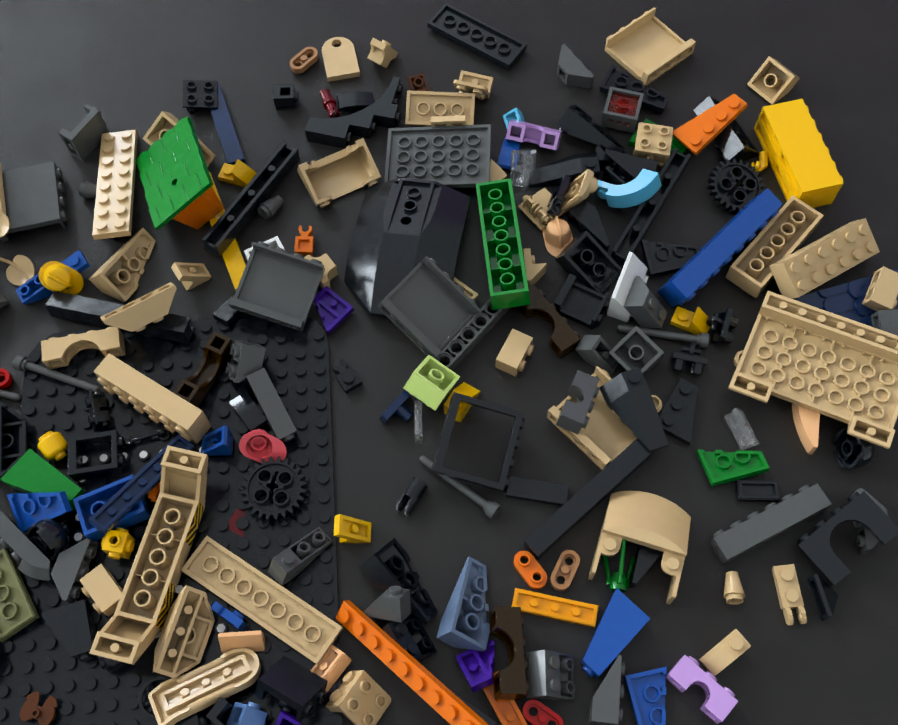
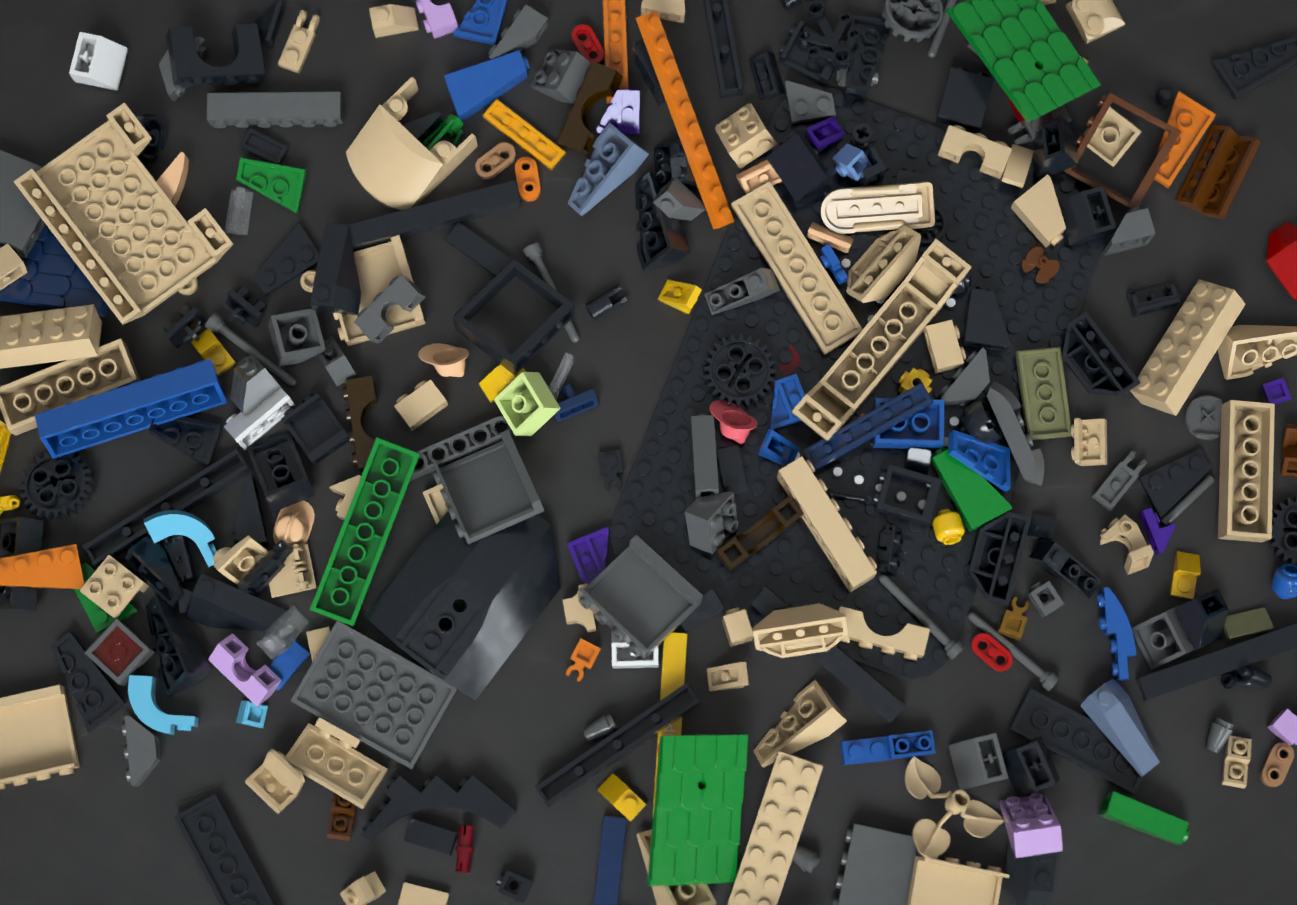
camera: 155 degrees left, 15 degrees up
(60, 278) = (879, 734): yellow piece -> none
(195, 302) = (737, 627): none -> tan brick
(223, 483) = (787, 395): none -> blue wing
(339, 173) = (501, 734): tan windscreen -> none
(517, 392) = (445, 358): none -> light nougat piece
(577, 89) = (143, 701): none -> medium azure arch
(733, 589) = (348, 69): tan cone -> none

